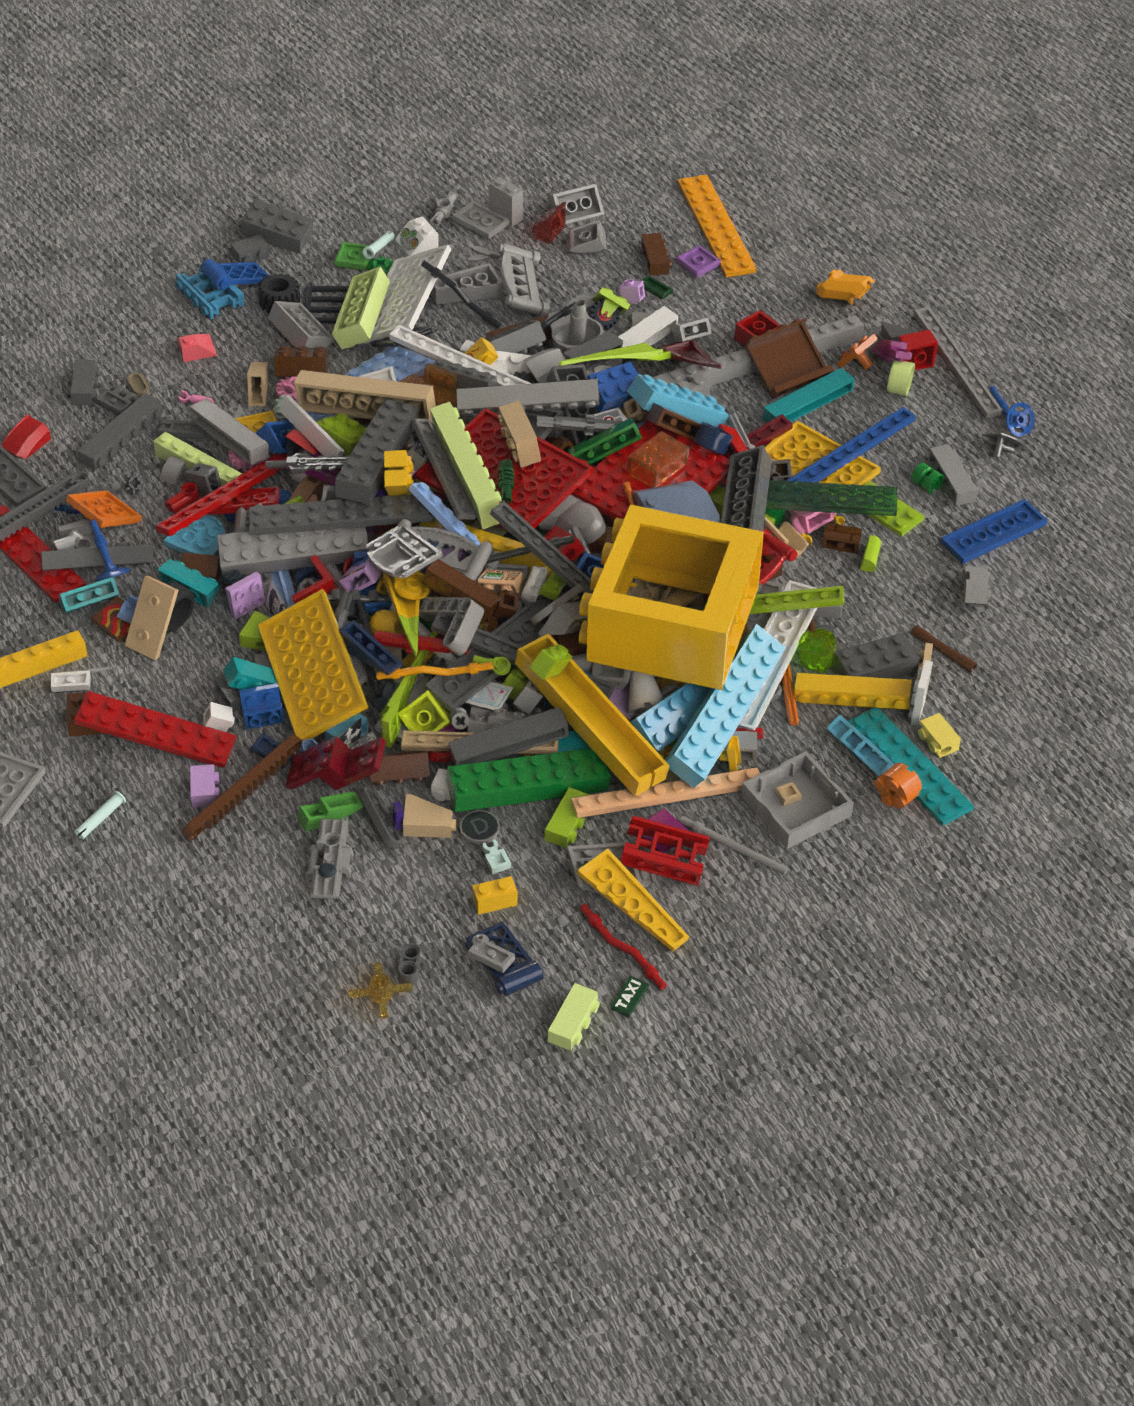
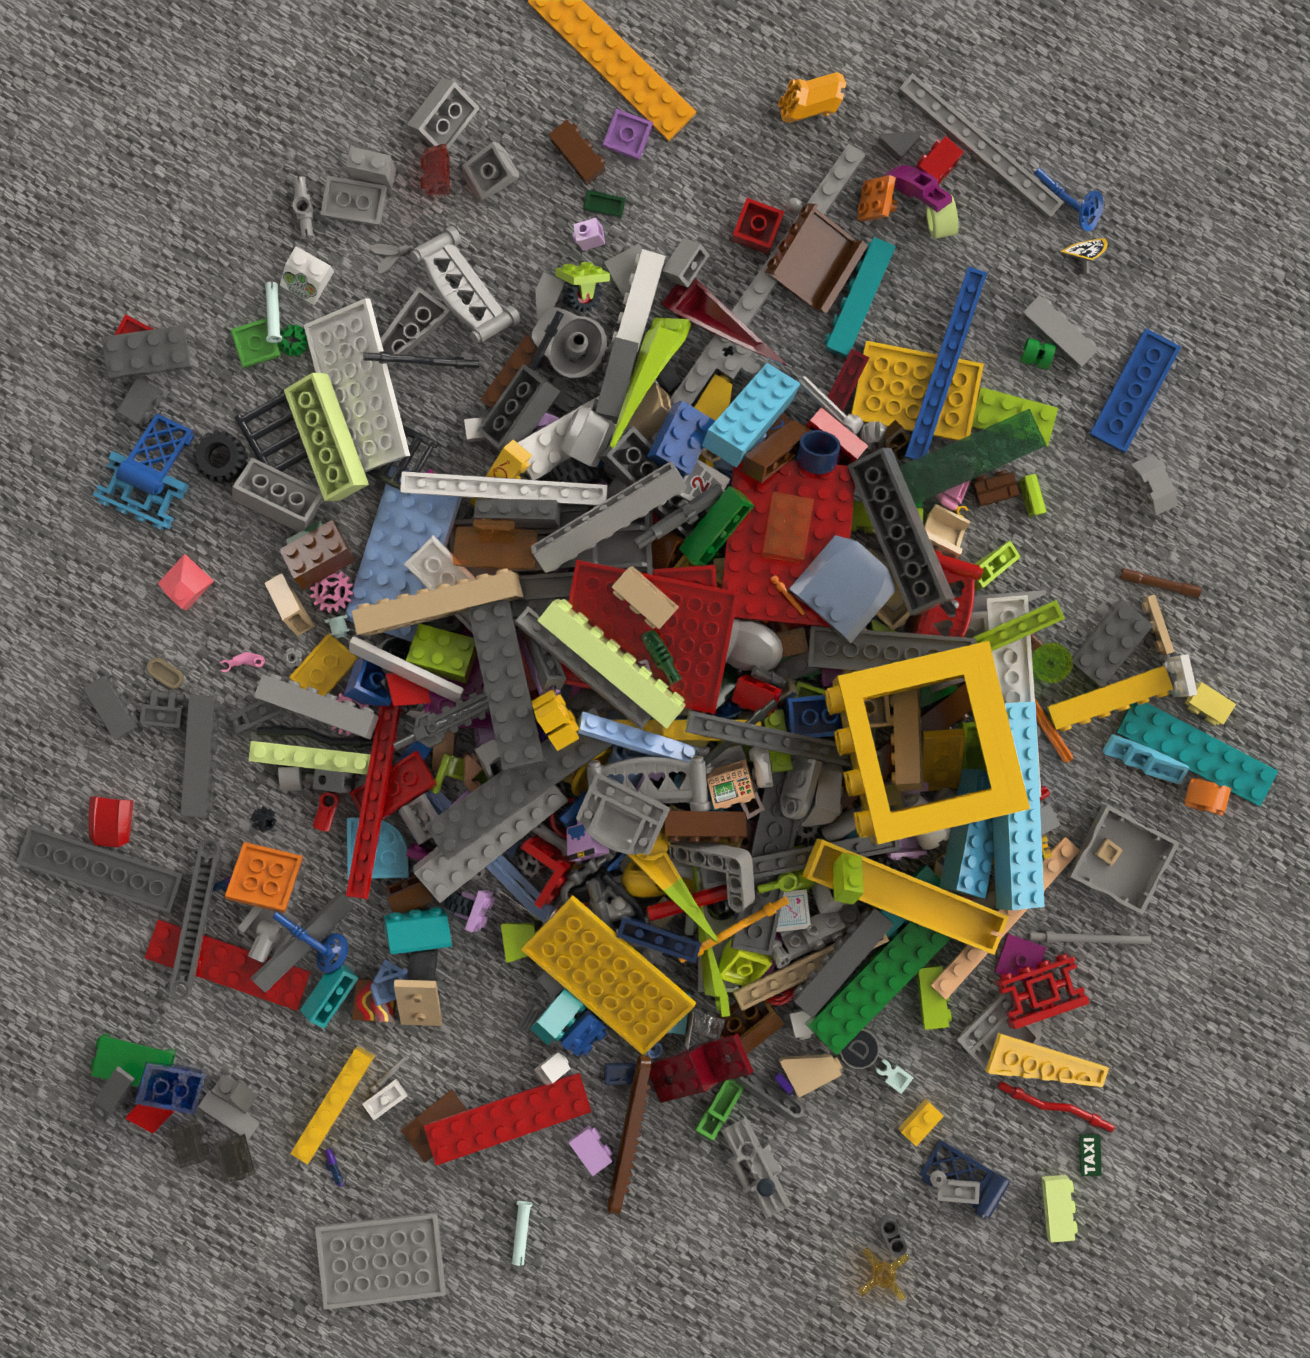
camera: 30 degrees left, 40 degrees up
(806, 575) = (996, 563): none -> lime slope

